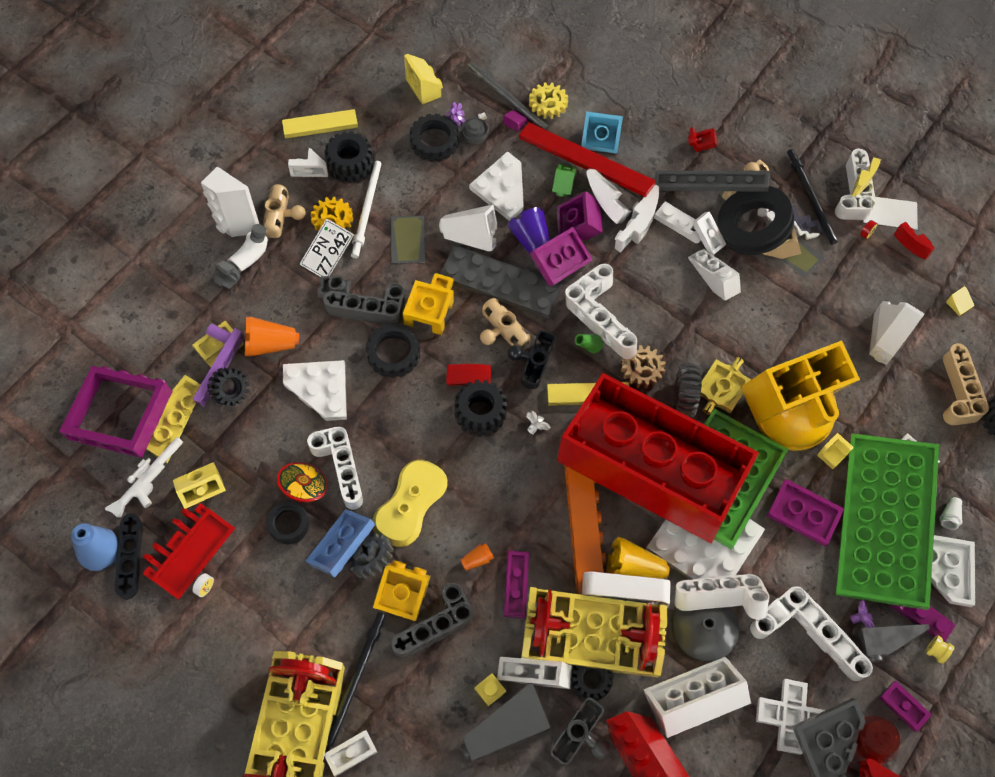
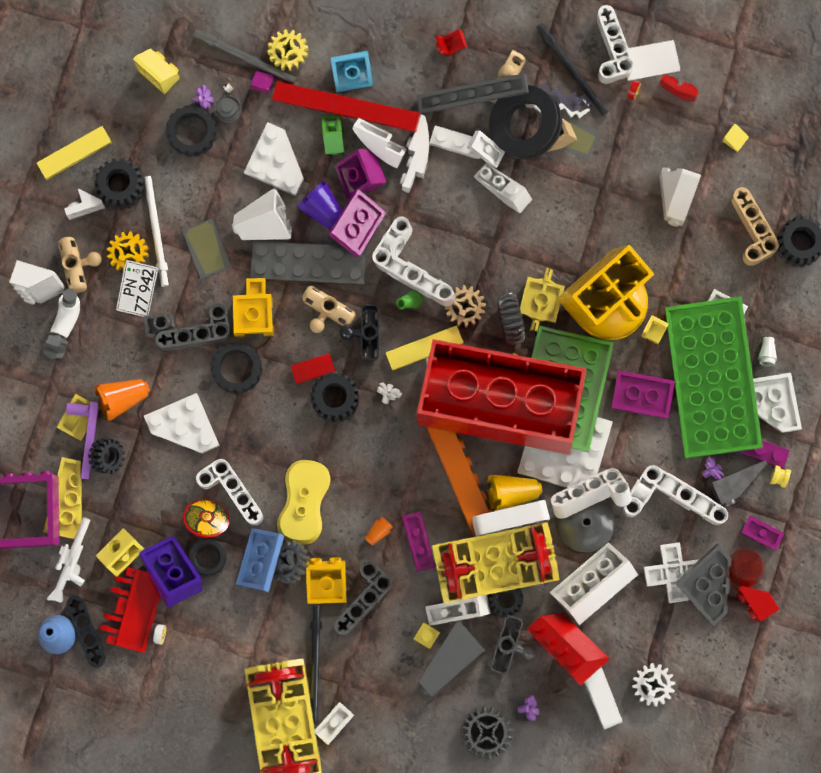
camera: 15 degrees left, 15 degrees up
(243, 523) = (171, 571): none -> dark purple slope
(865, 177) = (615, 43): light yellow slope -> none

